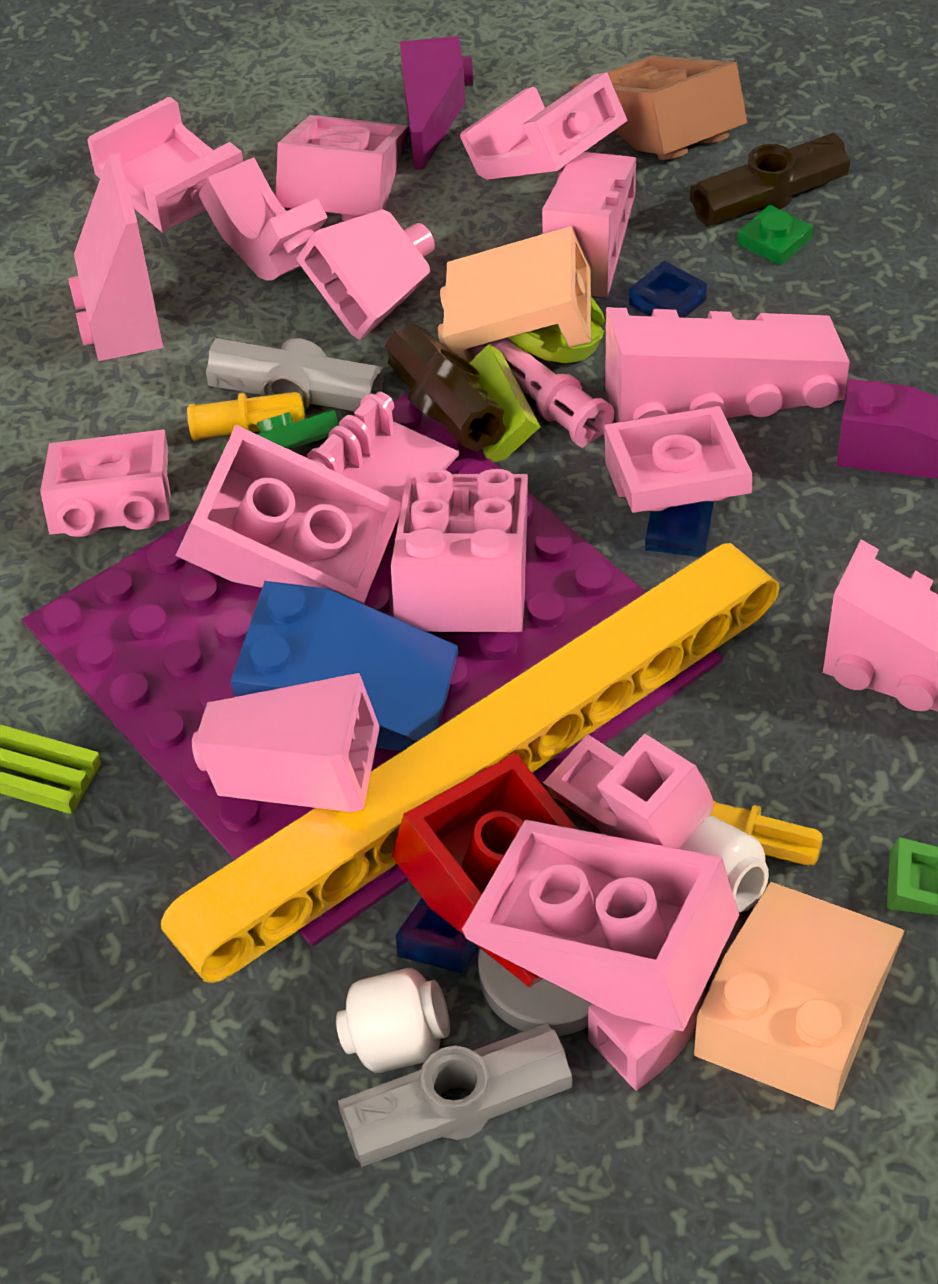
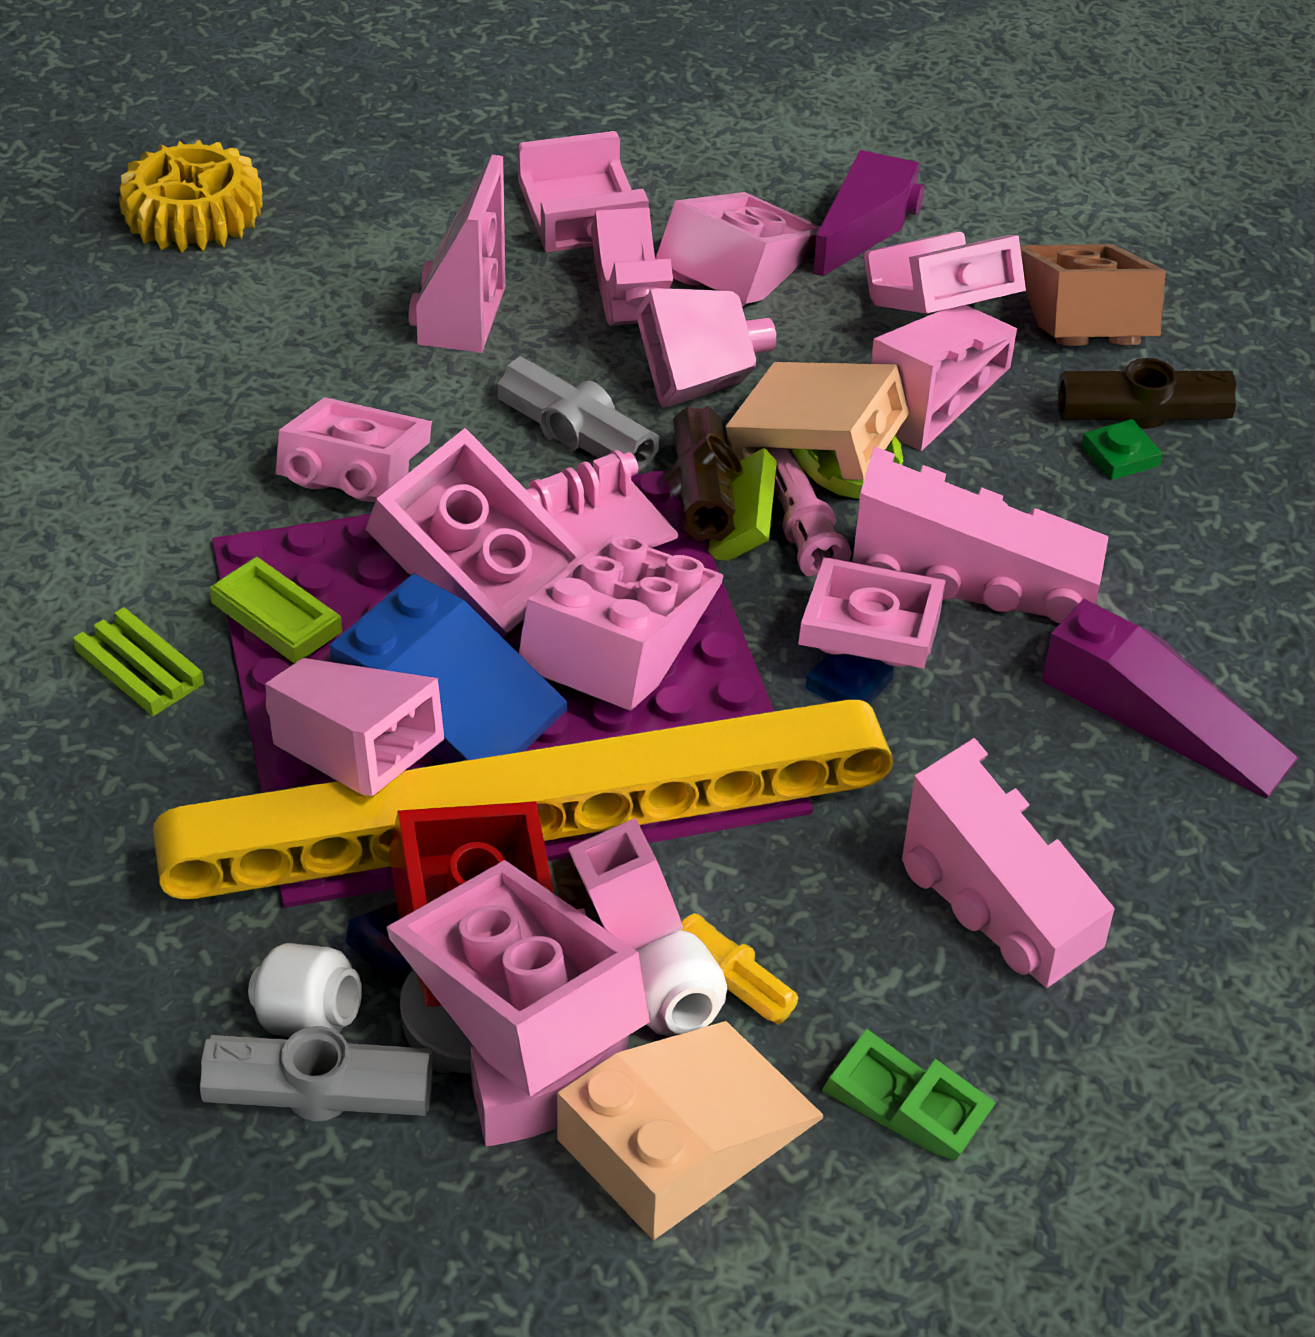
camera: 20 degrees right, 5 degrees down
(134, 665) = (276, 609): none -> lime tile
(221, 417) = (514, 435): yellow axle -> none
(290, 435) = (530, 461): green plate -> none
(668, 289) = (976, 464): clear blue plate -> none

